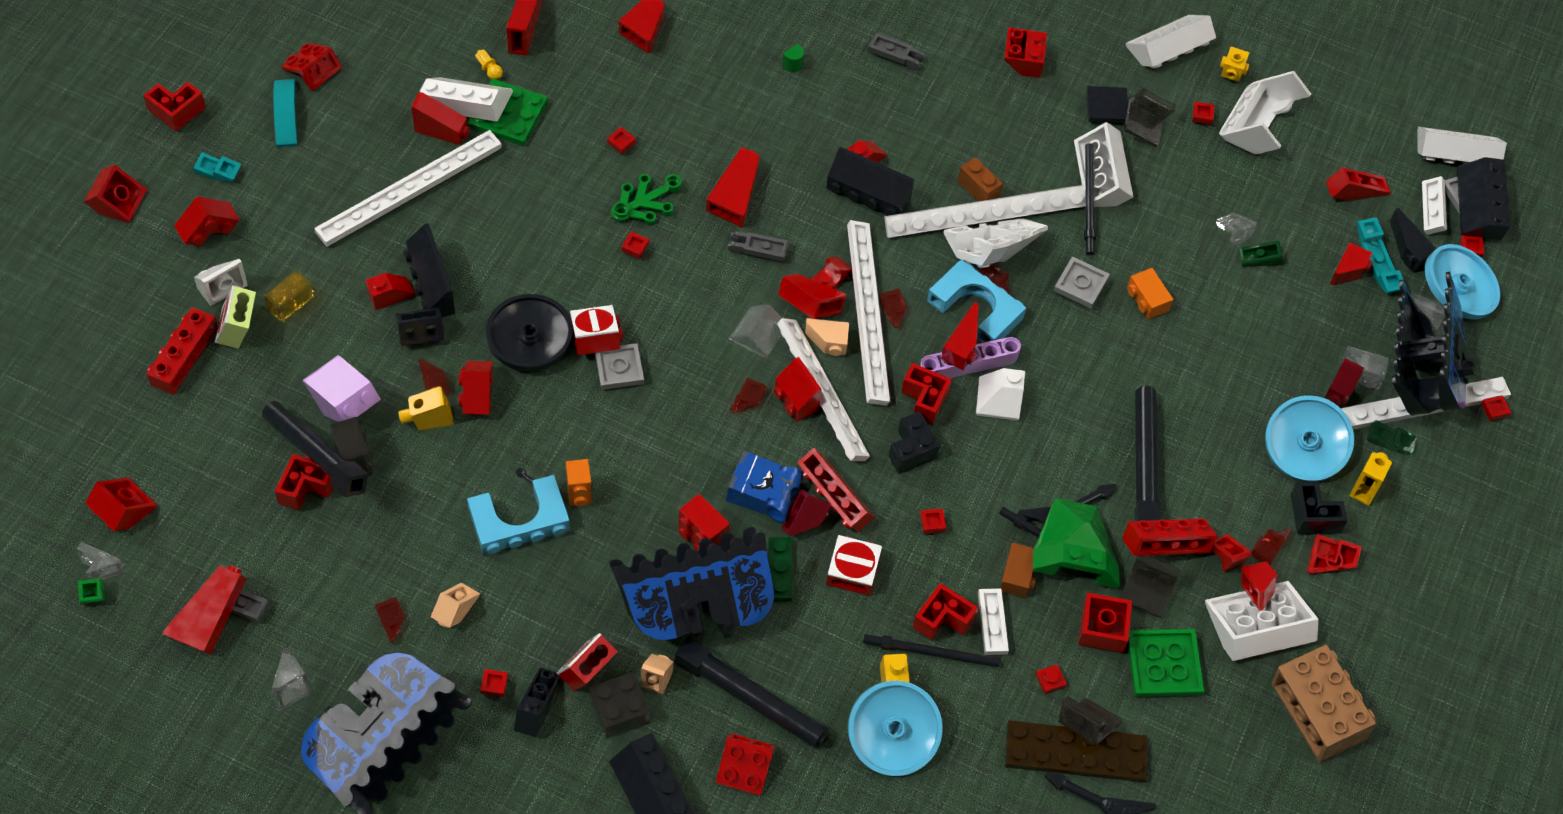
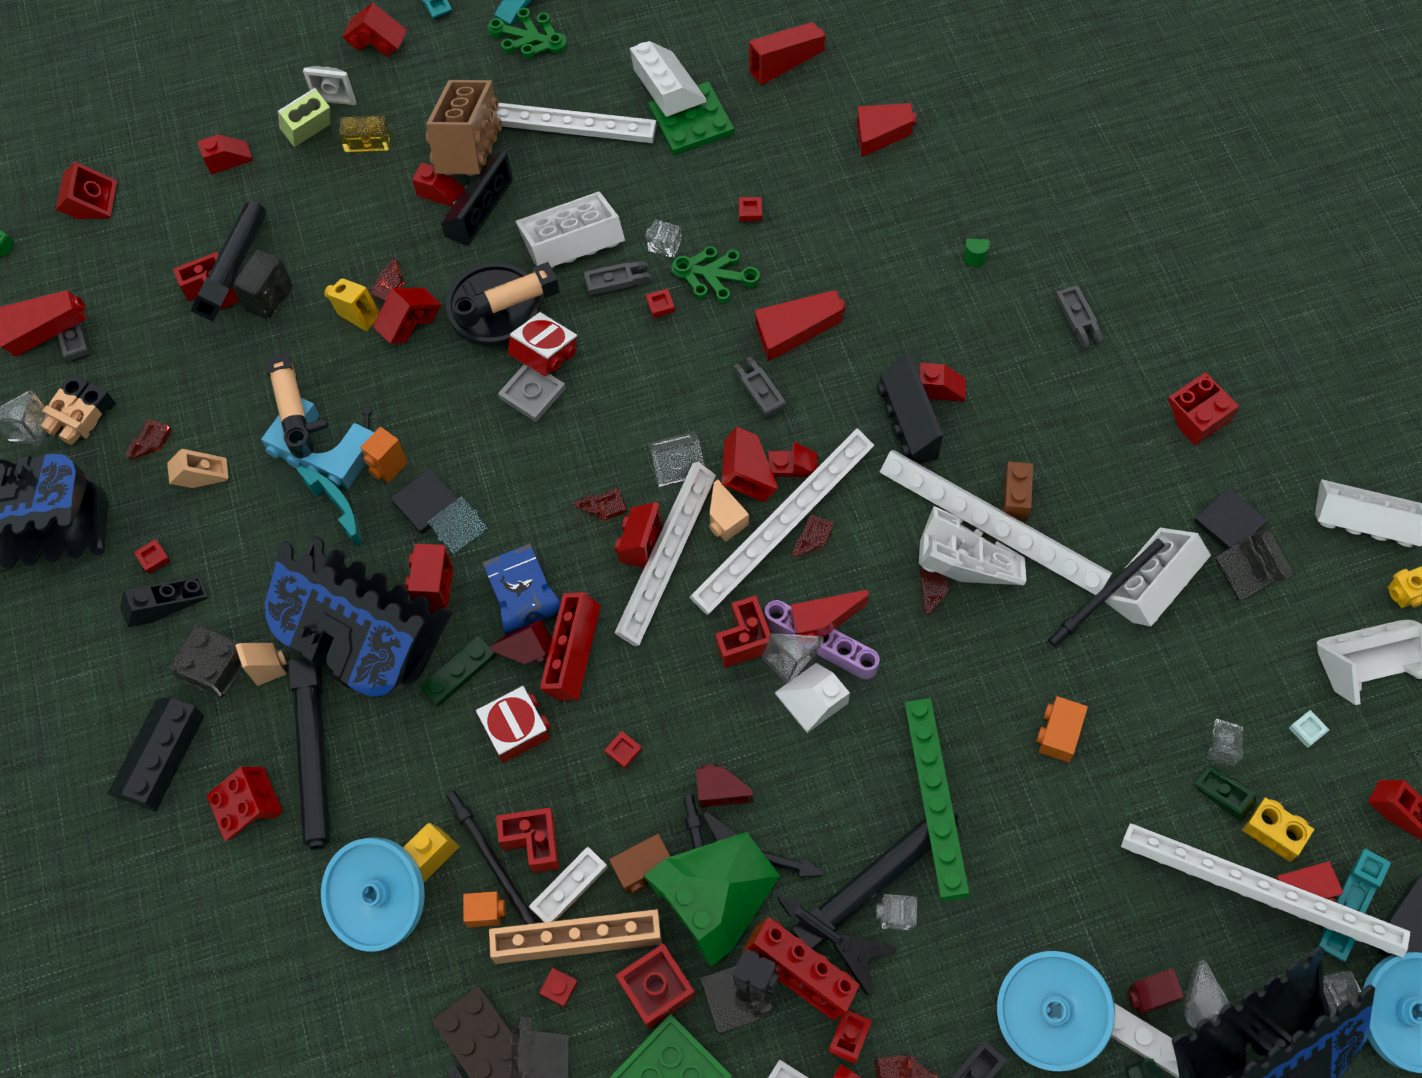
camera: 55 degrees right, 5 degrees up
(101, 563) = (24, 226): clear slope -> none
(182, 350) = (248, 115): red brick -> none
(194, 393) = (224, 153): none -> red slope
(314, 651) = (75, 409): none -> light nougat hips
(322, 139) = (551, 41): none -> green plant
(341, 390) = (303, 232): lavender slope -> none
(376, 230) = (463, 127): none -> medium nougat brick
(419, 321) = (421, 232): black brick -> none
(438, 120) = (623, 80): red slope -> none
(447, 489) = (290, 407): none -> piece
(489, 64) = (718, 69): yellow axle -> none
(518, 245) = (571, 230): none -> white slope
(553, 289) = (506, 295): none -> piece
(575, 537) = (317, 484): none -> teal slope
(585, 253) = (616, 277): none -> dark grey hinge
(587, 662) = (218, 602): red piece -> none
(588, 202) = (663, 238): none -> clear brick
(635, 490) = (423, 500): none -> black tile
(673, 485) = (457, 525): none -> clear light blue piece
(917, 444) = (683, 674): black brick -> none
(962, 678) = (483, 909): none -> orange brick
(964, 281) = (899, 566): medium azure arch -> none
(969, 379) = (790, 653): none -> clear slope
(1010, 489) = (720, 787): none -> dark red slope
(1032, 640) = (575, 936): none -> light nougat brick
(1081, 282) = (1009, 662): light grey plate -> none
(1132, 386) = (936, 801): none -> green plate
(1160, 554) = (755, 975): none -> black brick
(1178, 466) = (897, 912): none -> clear brick
(1179, 505) = (852, 950): none -> black piece
(1203, 113) = (1323, 607): red plate -> none
(1264, 185) = (1309, 729): none -> light aqua tile
(1307, 250) = (1275, 835): none -> yellow brick
(1335, 284) = (1267, 890): none -> white plate

